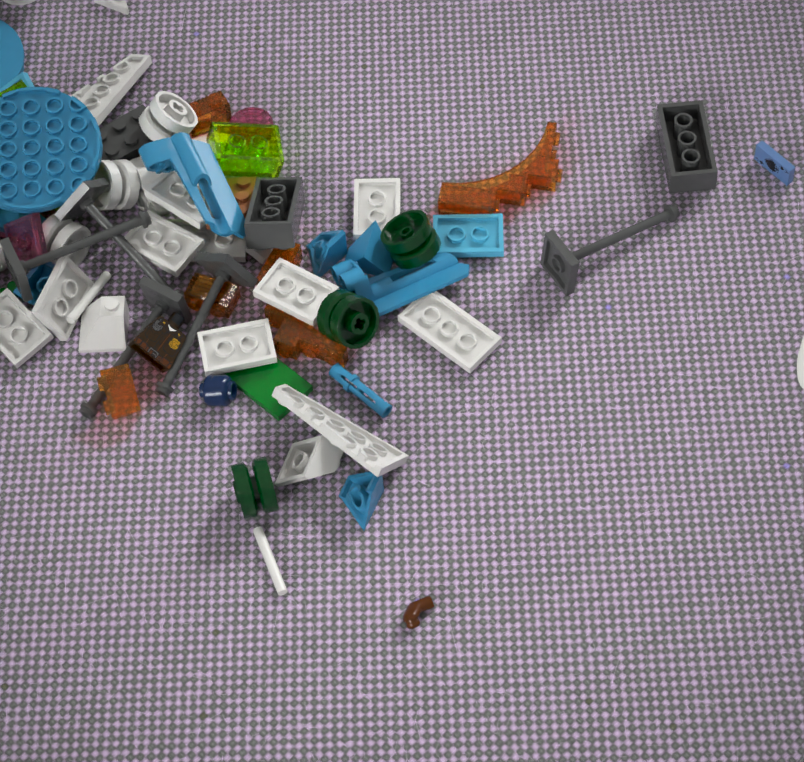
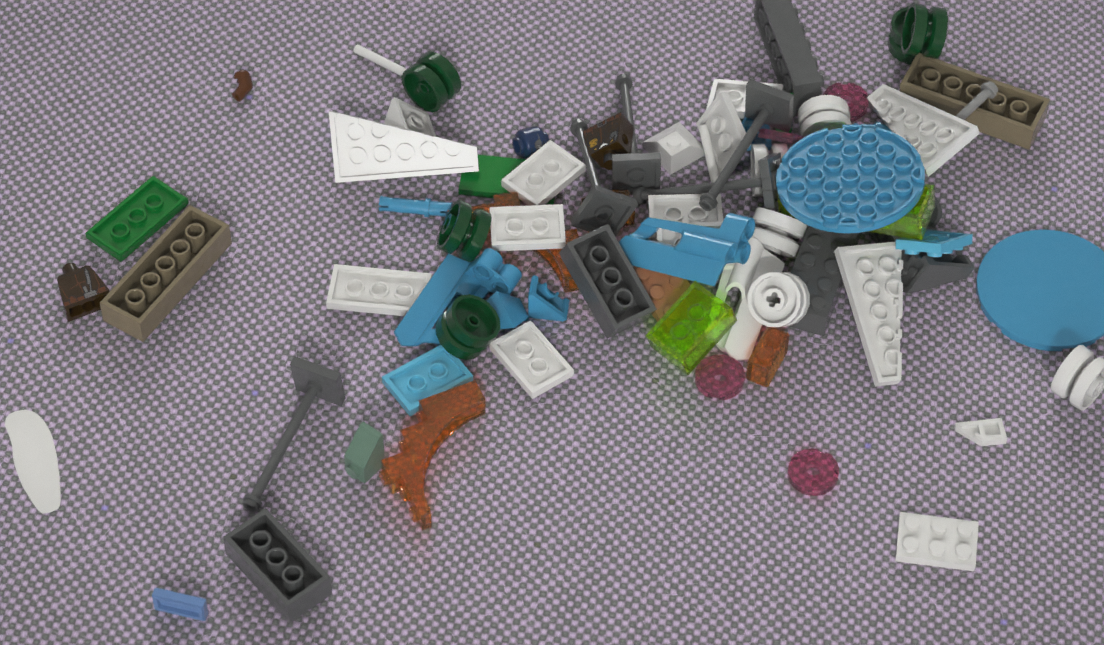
camera: 140 degrees right, 5 degrees down
(119, 390) = (604, 94): clear orange brick -> none
(253, 41) = (813, 484): none -> clear pink tile
(563, 192) = (364, 453): none -> sand green slope
(605, 522) = (137, 218): none -> green tile
(618, 433) = (166, 273): none -> dark tan brick
(701, 465) = (80, 291): none -> dark brown torso

